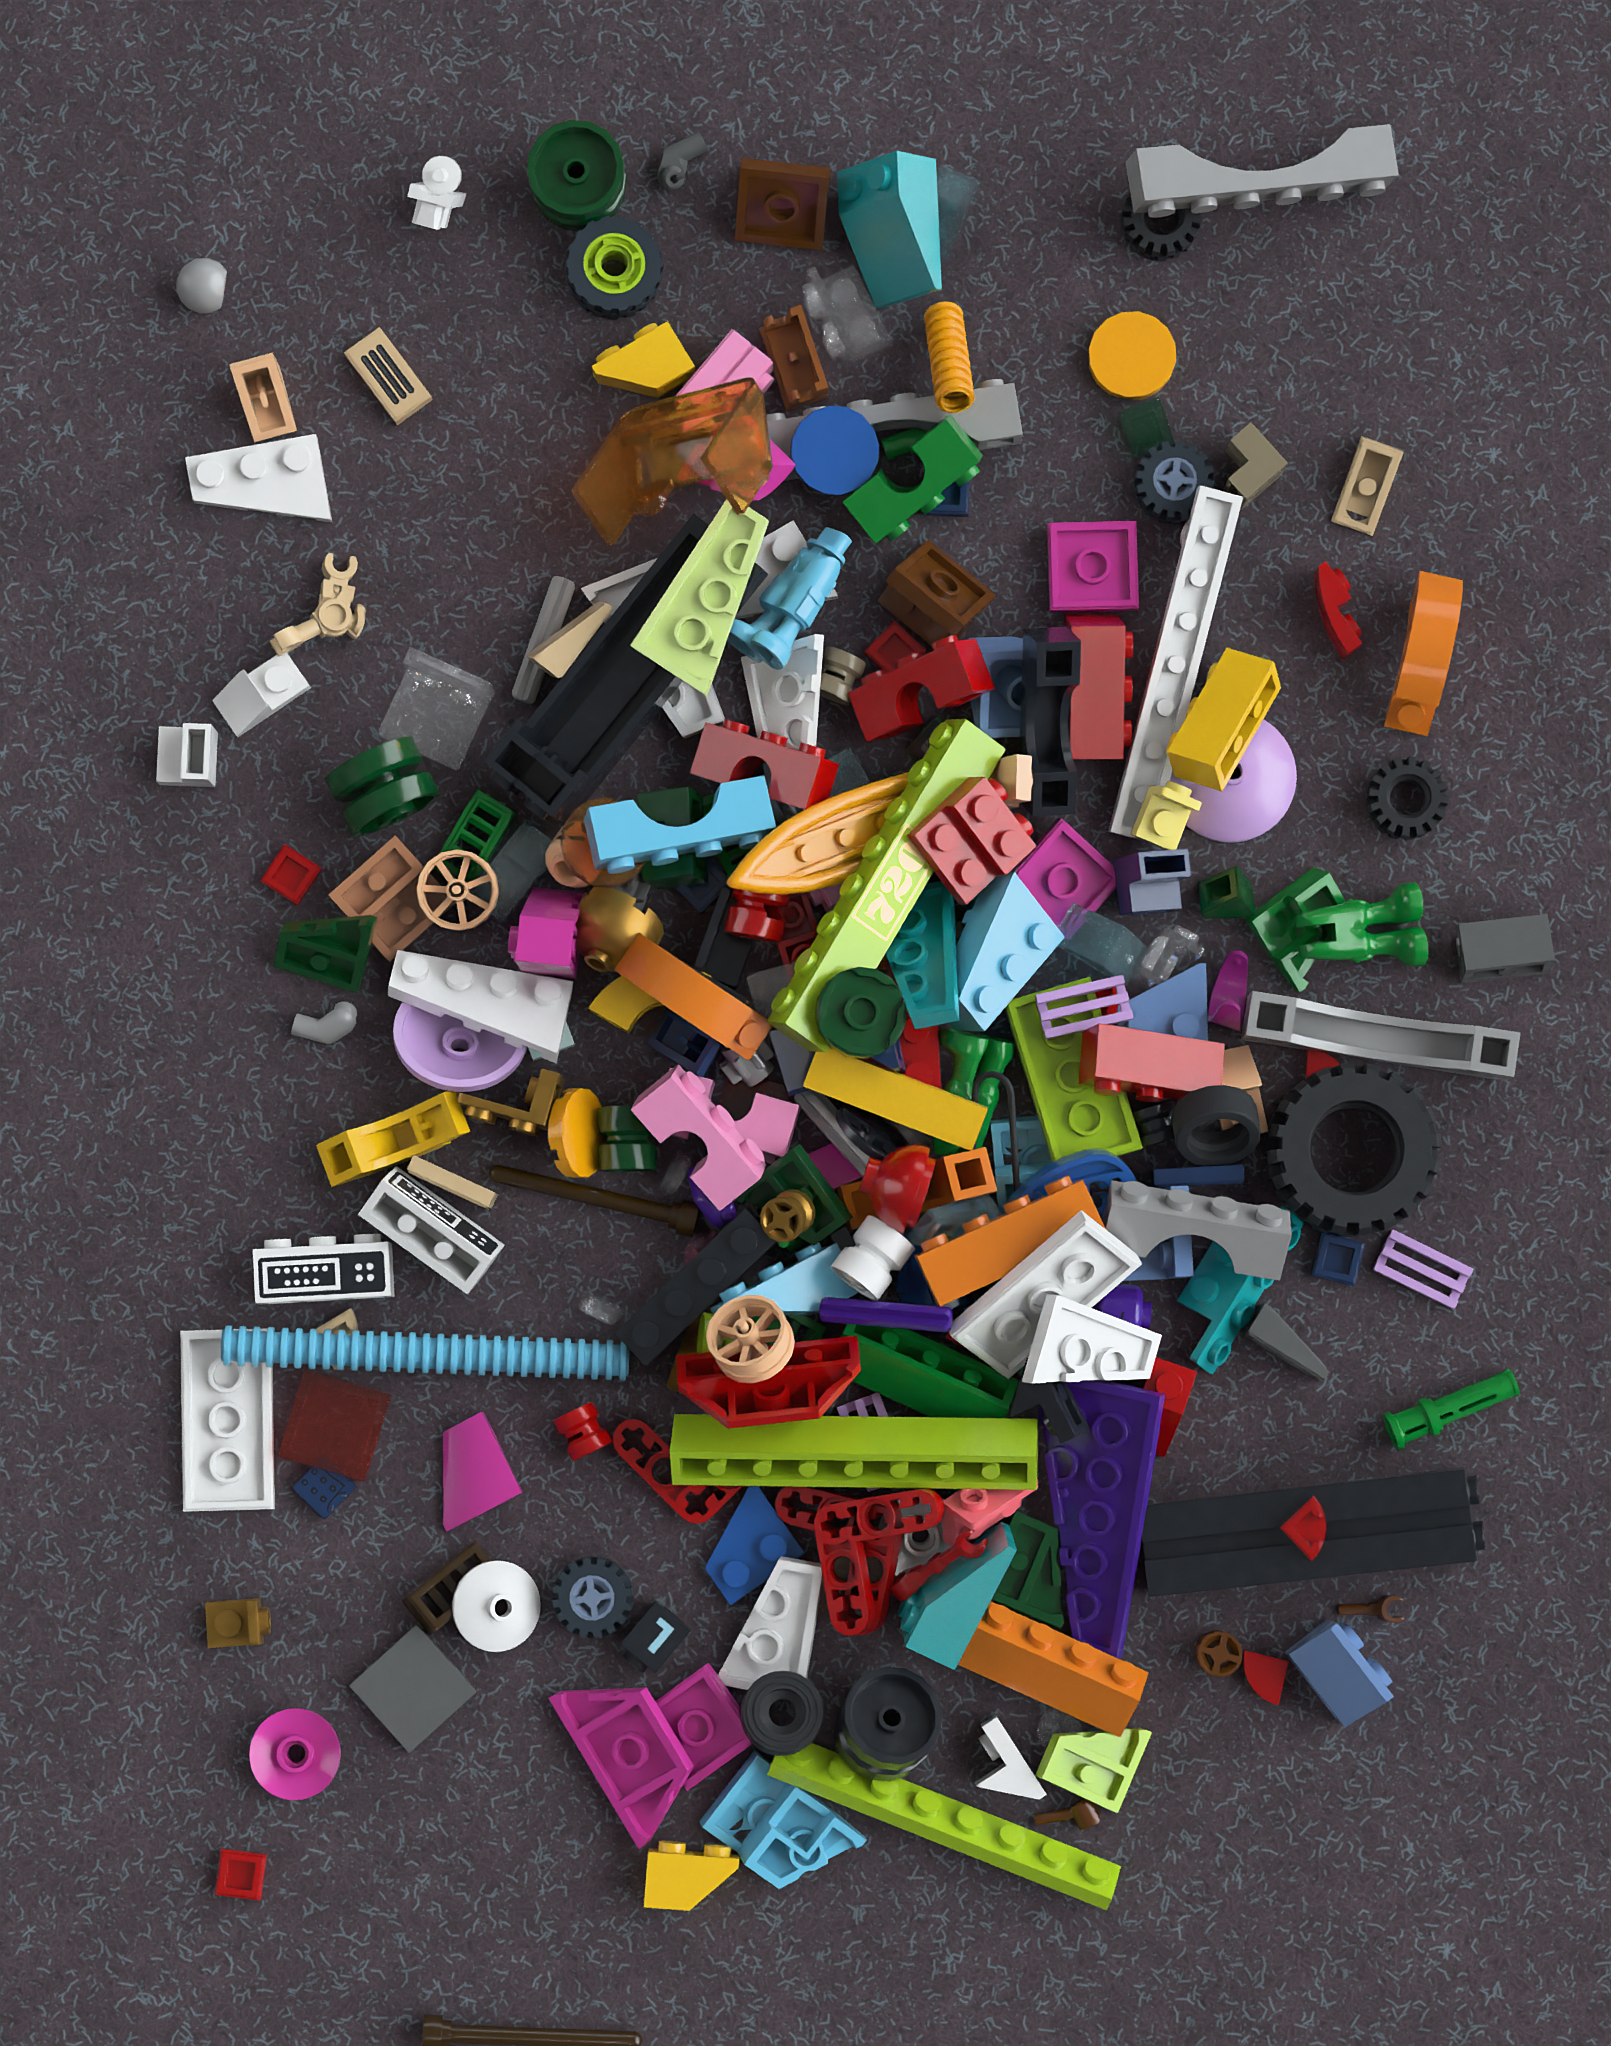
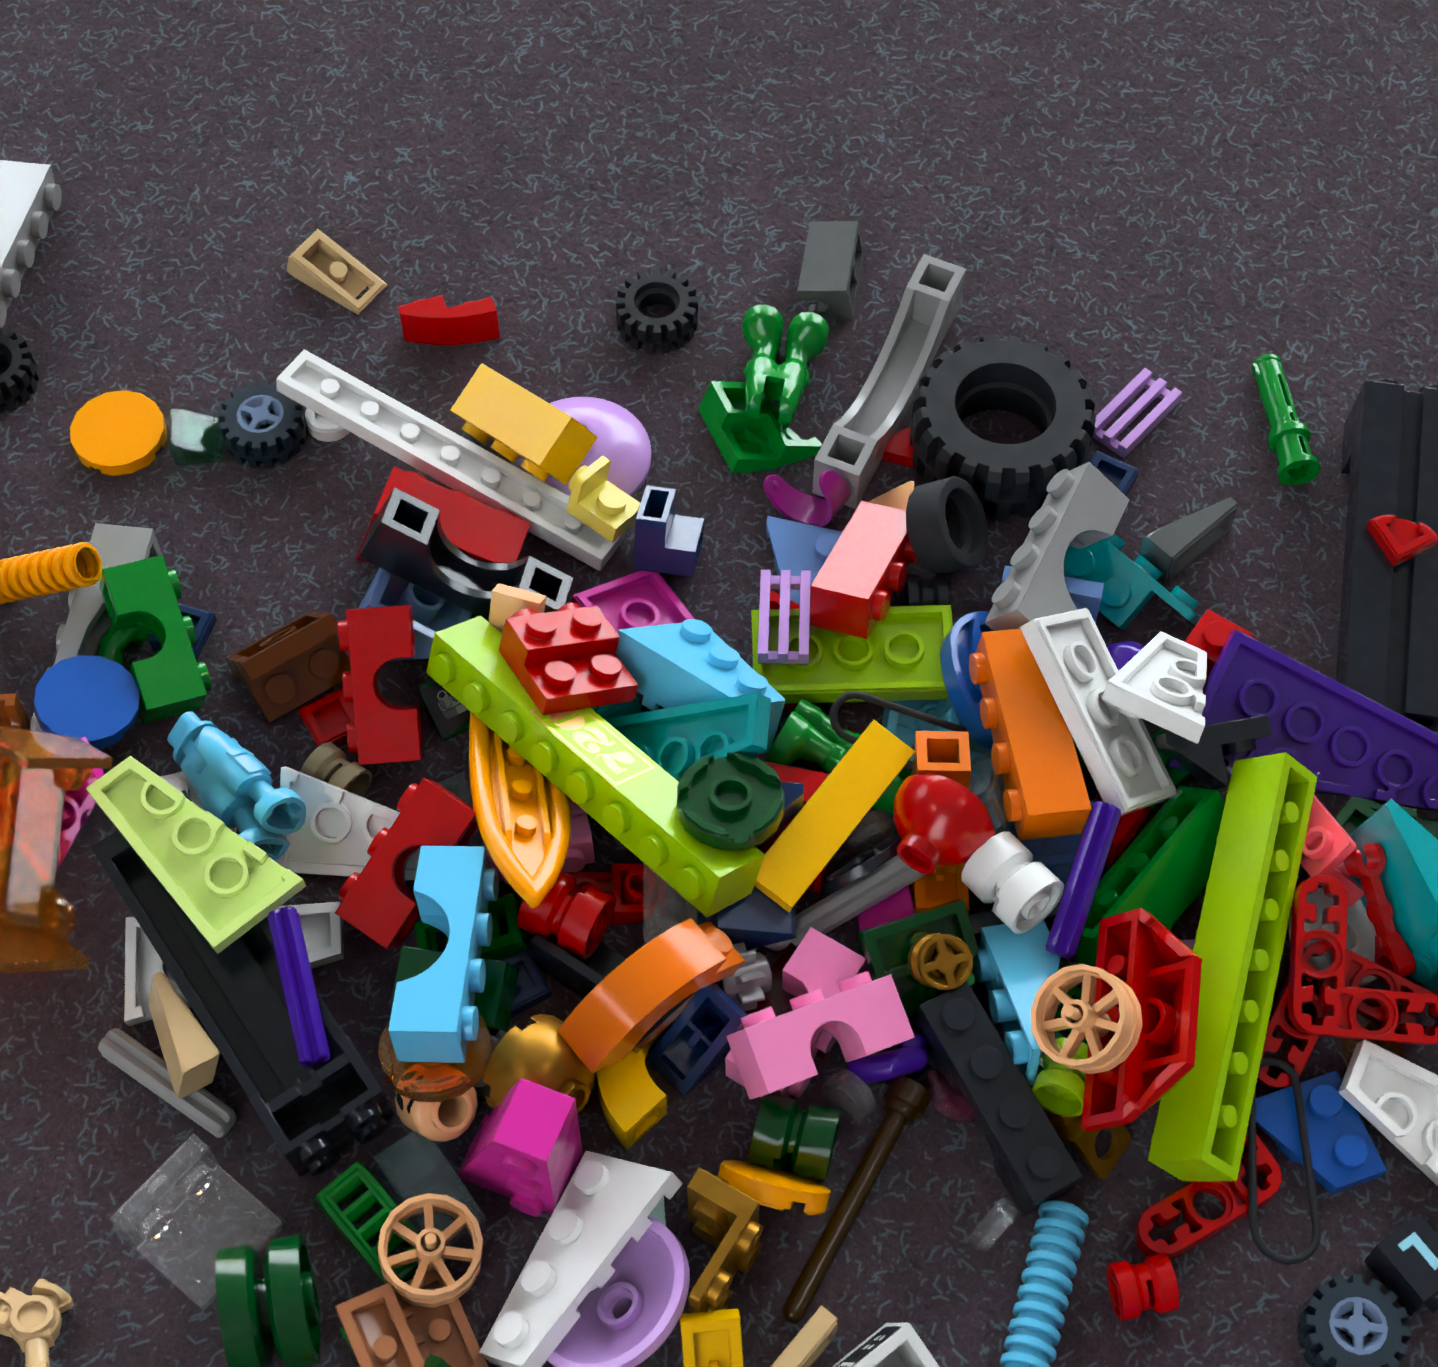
camera: 75 degrees left, 25 degrees down
(624, 720) = (298, 987): none -> dark purple axle
(703, 1497) = (1308, 1170): none -> black piece
(1092, 566) = (318, 515): dark pink plate -> none
(1101, 942) = (716, 596): clear light blue slope -> none
(1159, 956) = (750, 534): clear bracket -> none
(1197, 1176) = (992, 565): dark blue tile -> none
(1226, 895) = (702, 480): dark green slope -> none
(1258, 464) = (268, 344): dark tan piece -> none
(1426, 653) = (526, 245): orange arch -> none

